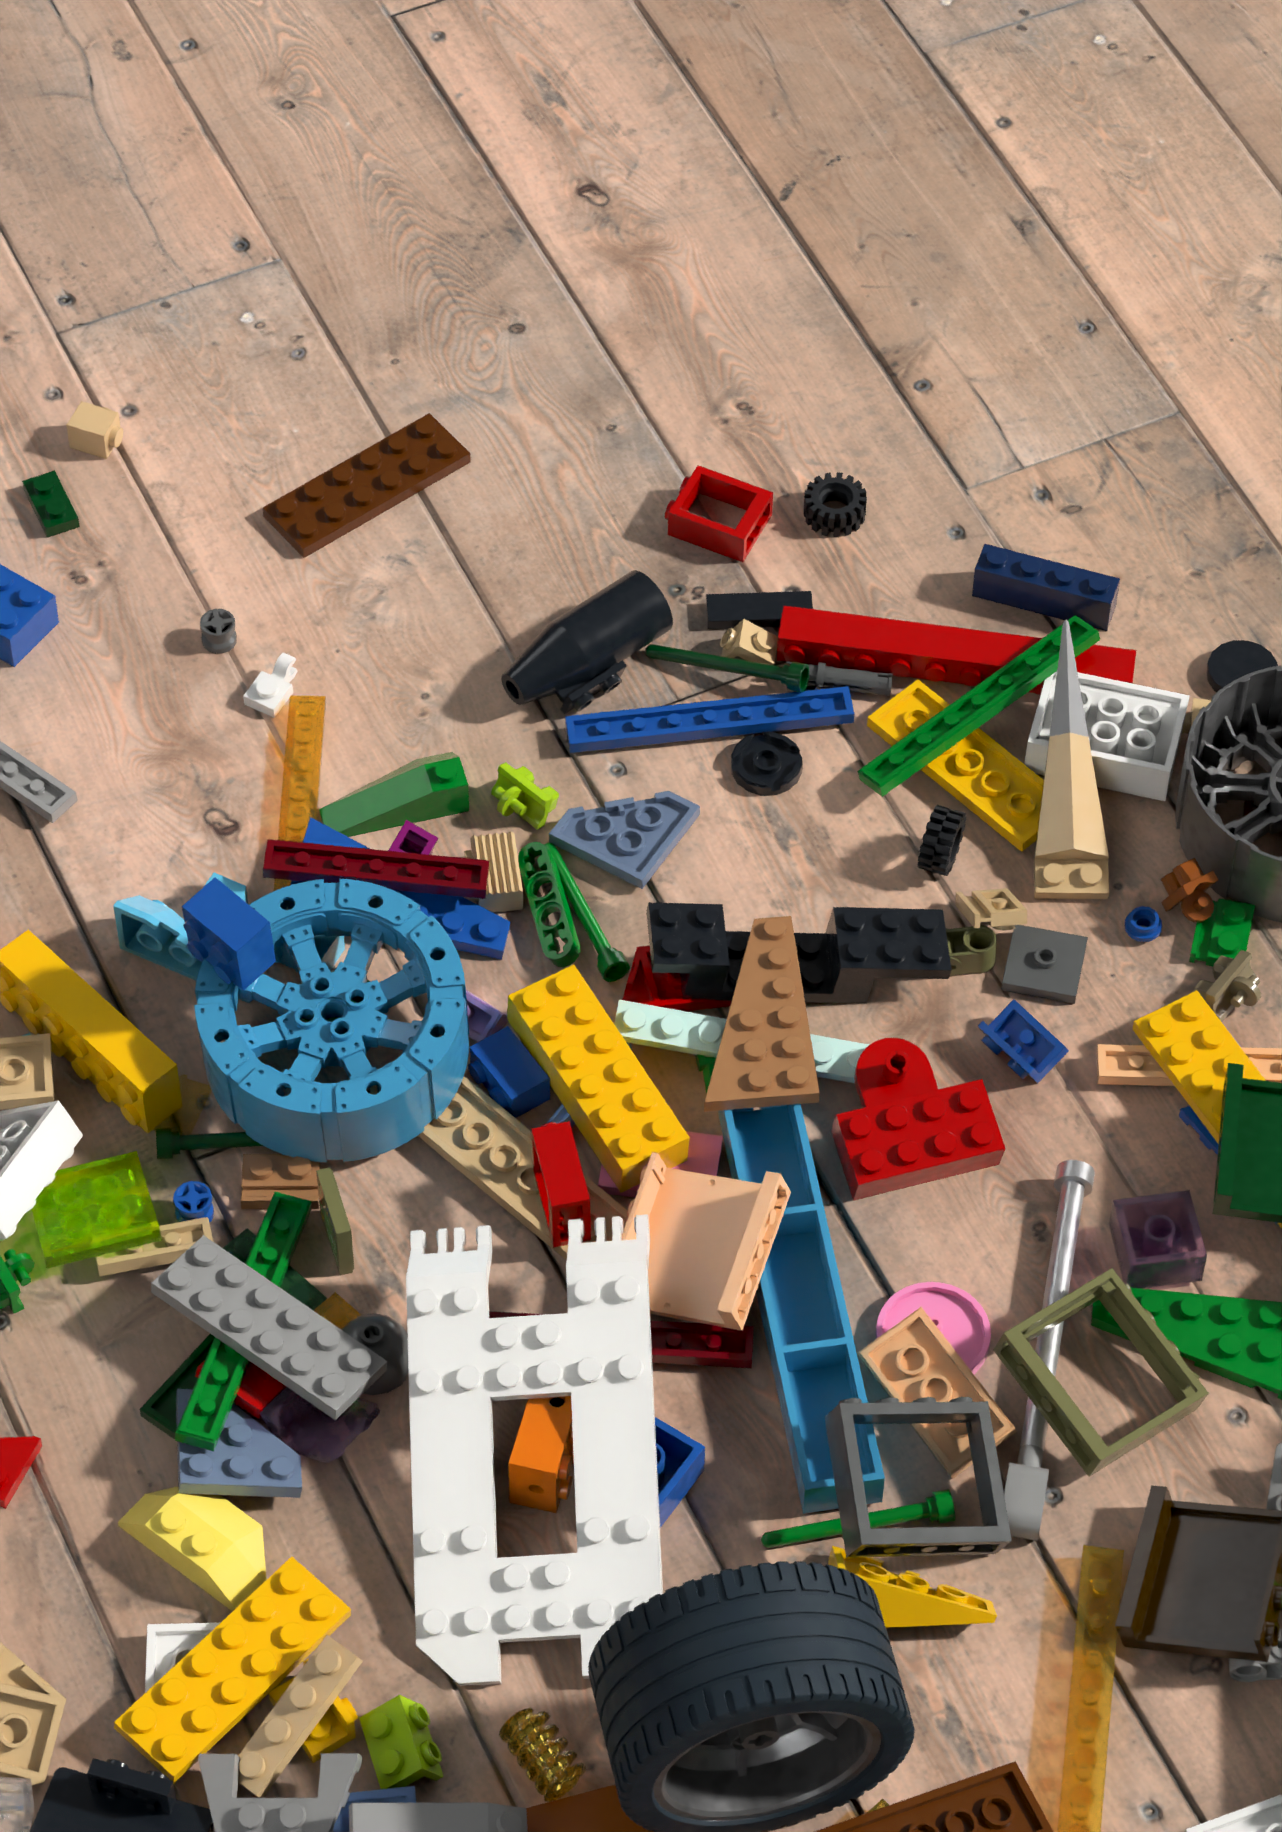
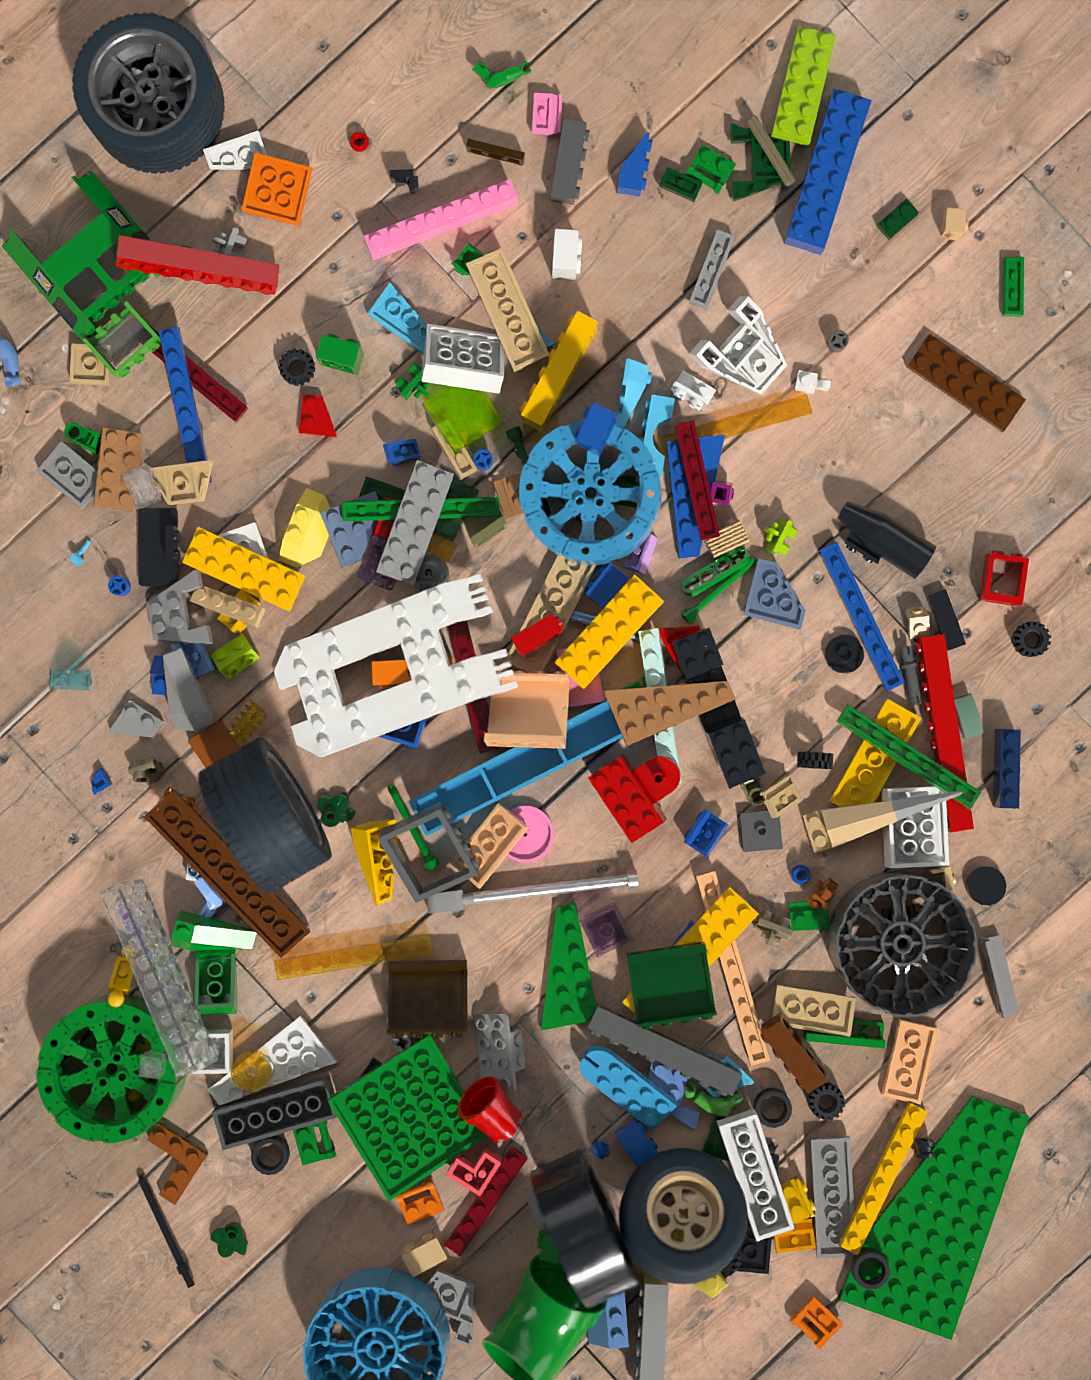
camera: 70 degrees right, 35 degrees up
(120, 1337) = (401, 451): none -> blue slope
(177, 761) = (748, 354): none -> white wedge
(215, 851) = (692, 391): none -> white bracket
(235, 387) = (1013, 287): none -> green tile
(414, 792) = (763, 475): green wedge -> none
(792, 676) = (899, 652): dark green piece -> none
(937, 613) = (968, 716): none -> sand green slope
(1055, 1402) = (542, 946): olive window -> none

